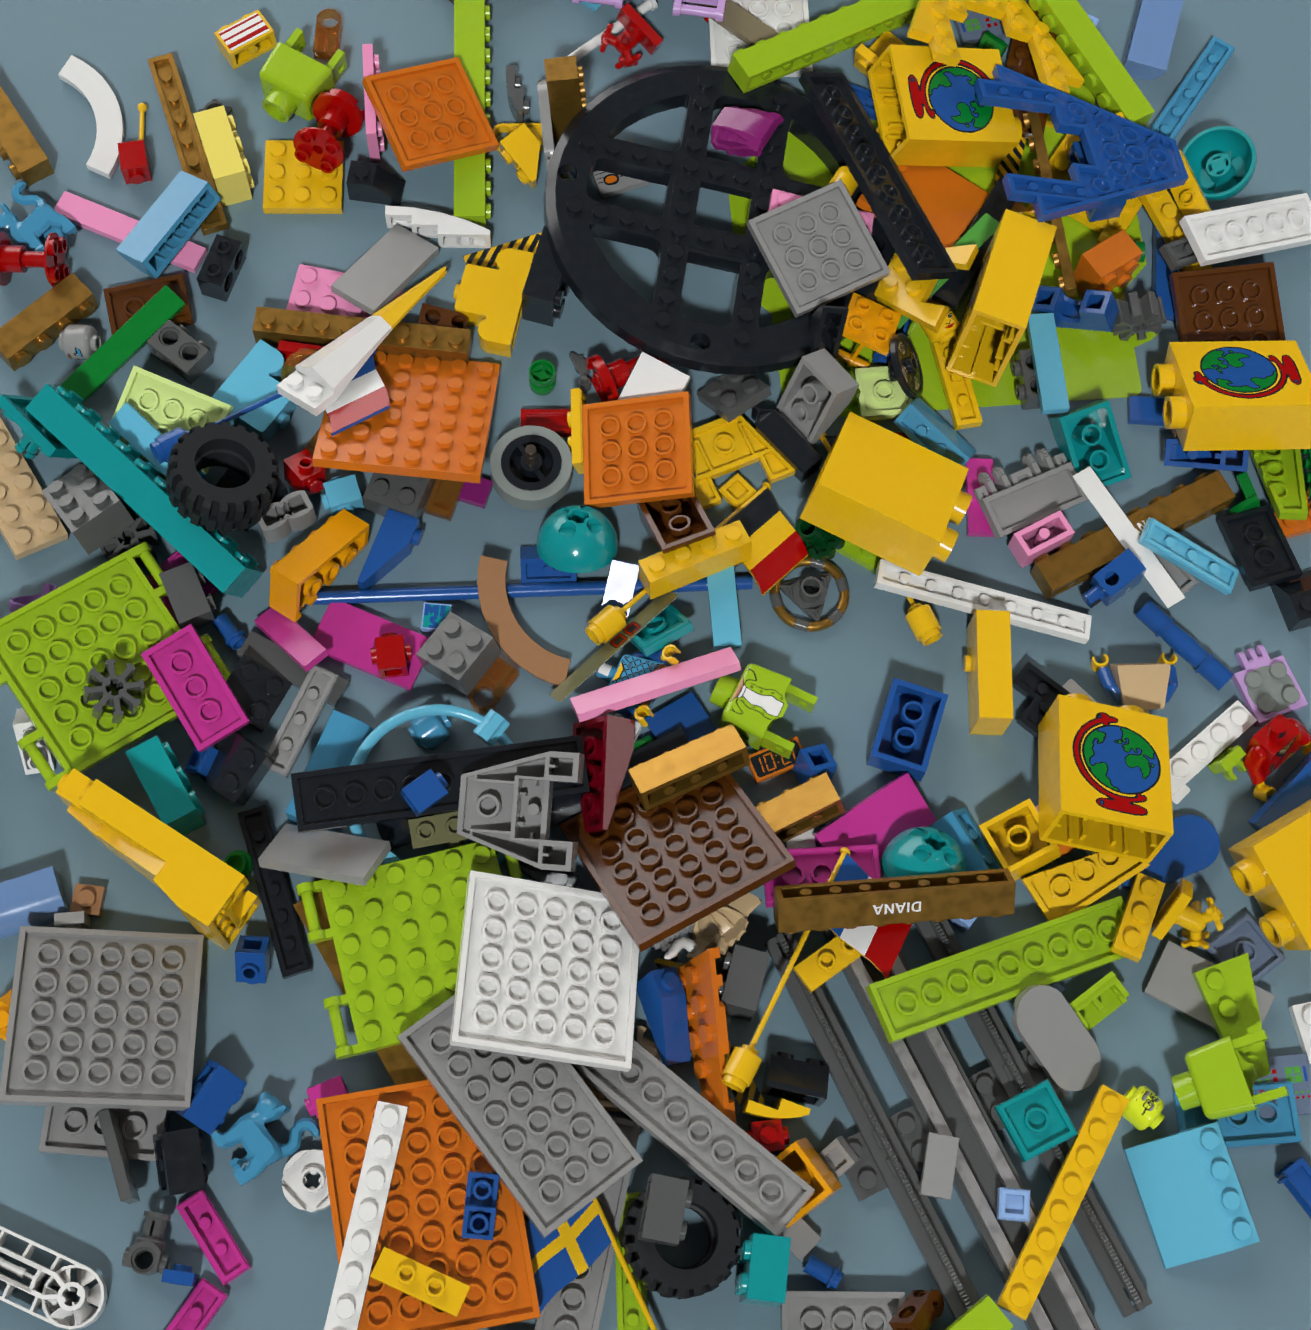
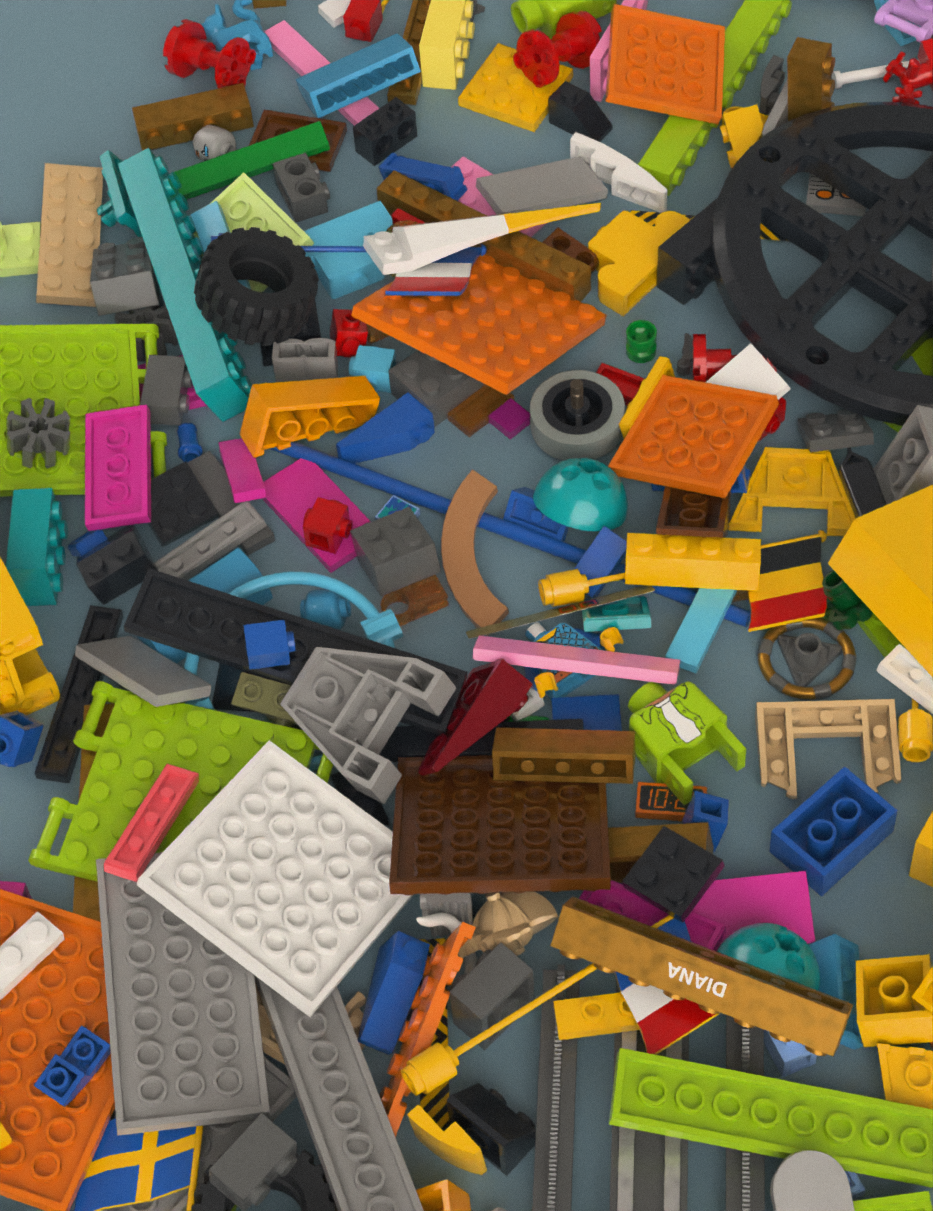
camera: 40 degrees right, 15 degrees down
(240, 861) = (59, 650): green plate -> none
(289, 298) = (438, 177): none -> blue container
(420, 983) = (151, 822): none -> coral tile
(736, 491) = (785, 526): yellow tile -> none
(770, 1135) = (426, 1164): red brick -> none
(827, 828) = (673, 874): none -> black plate
(883, 627) = (784, 721): none -> tan wedge

